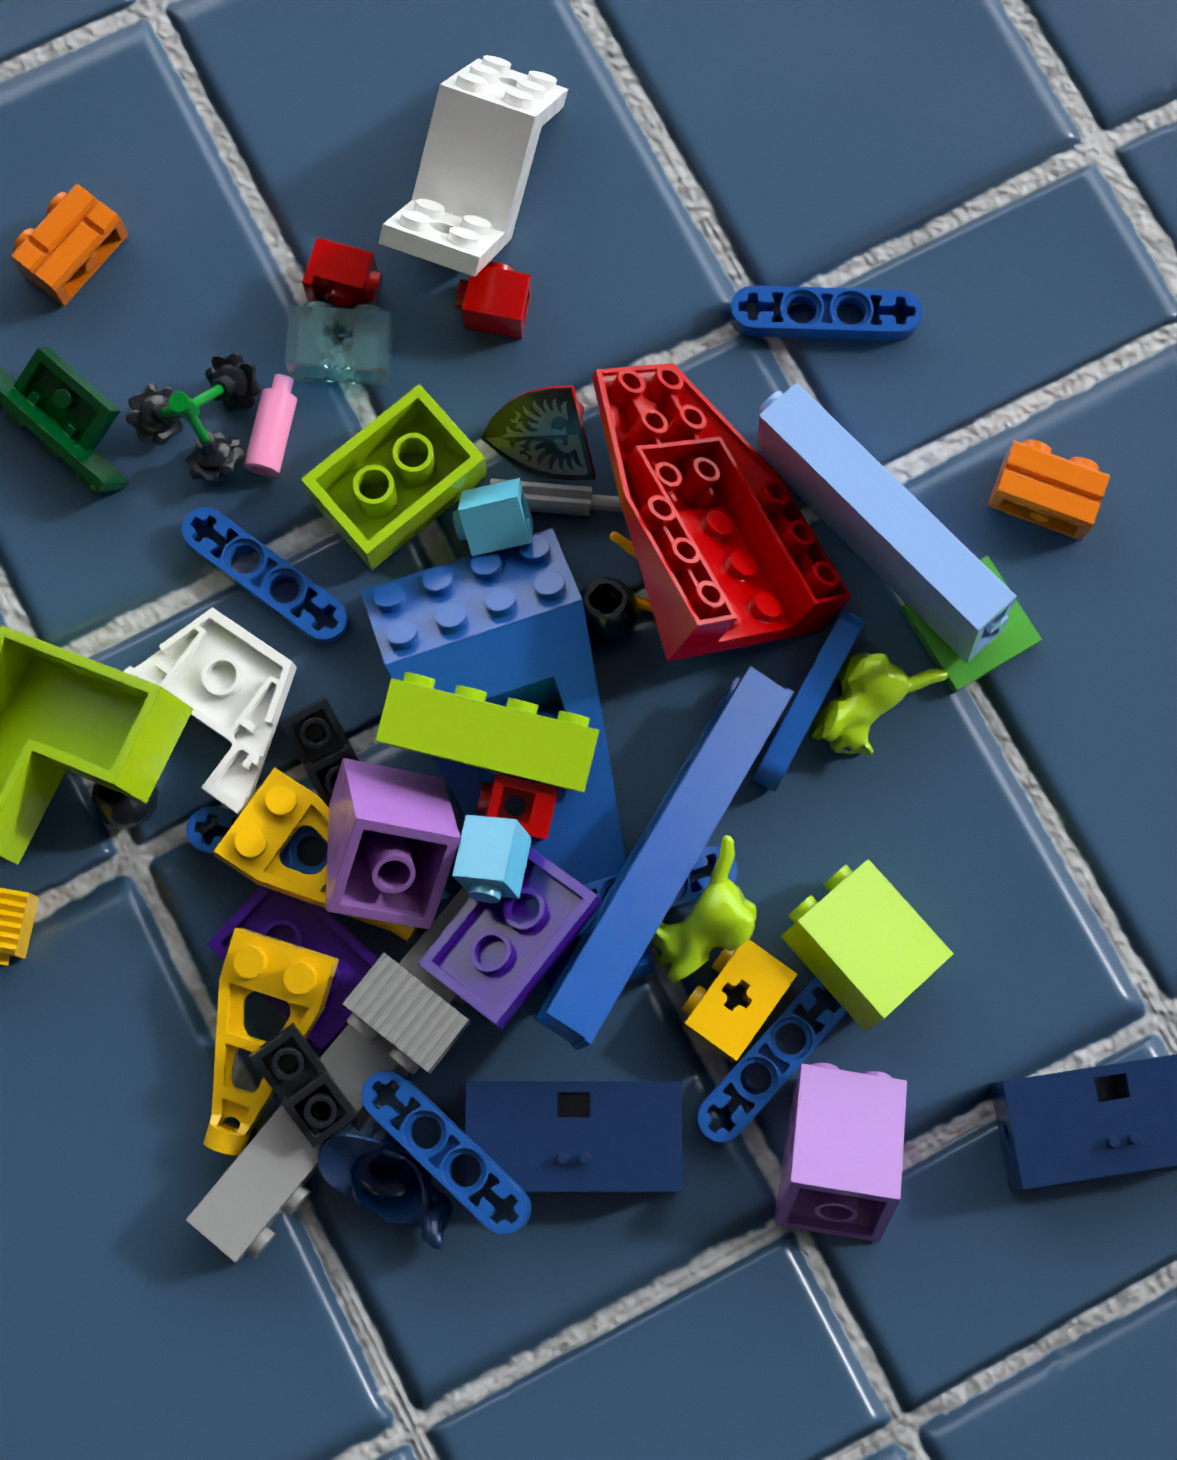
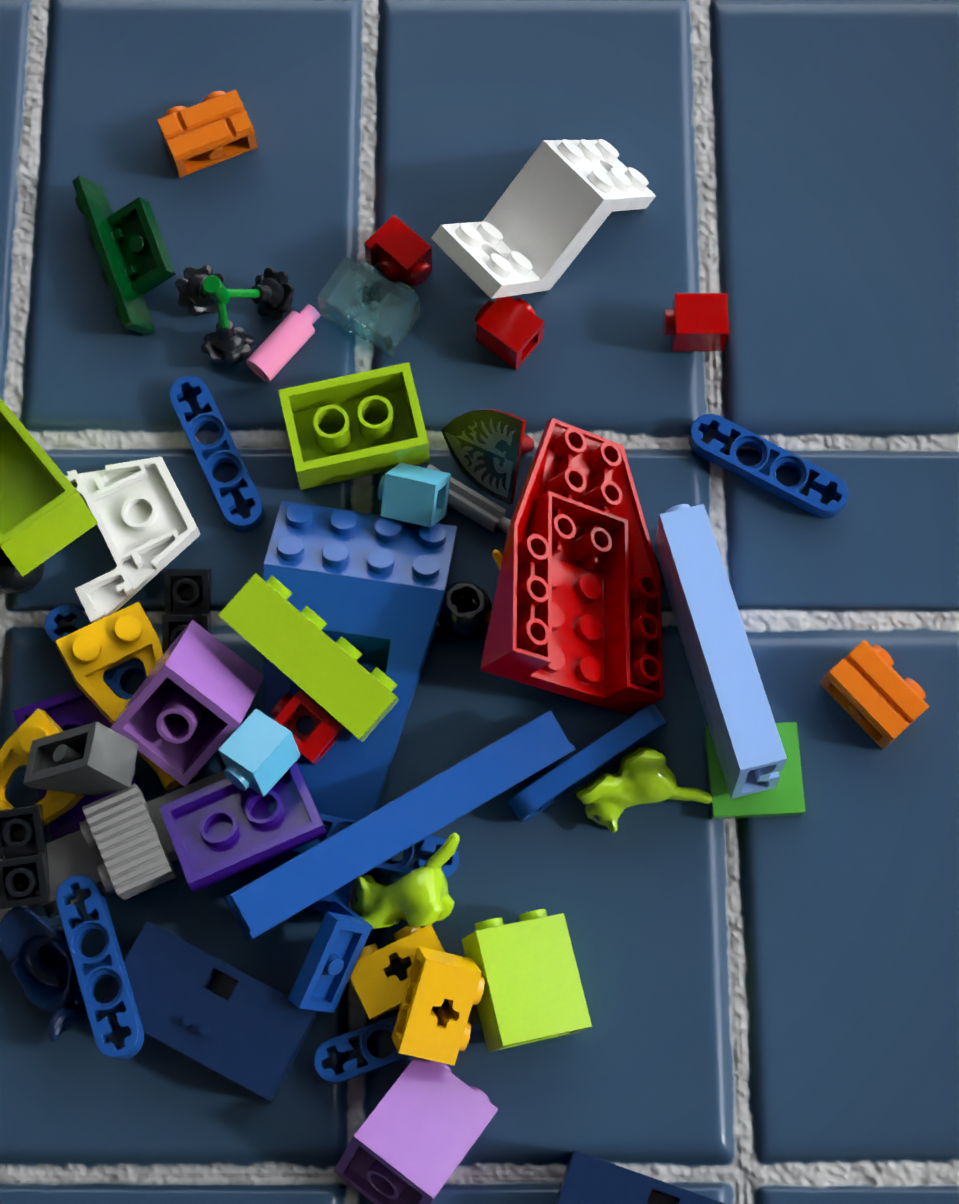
camera: 30 degrees right, 5 degrees down
(317, 958) = (82, 761): none -> dark grey slope
(667, 1022) = (330, 960): none -> blue panel
(682, 199) = (697, 322): none -> red brick
(798, 1013) = (431, 980): none -> yellow brick

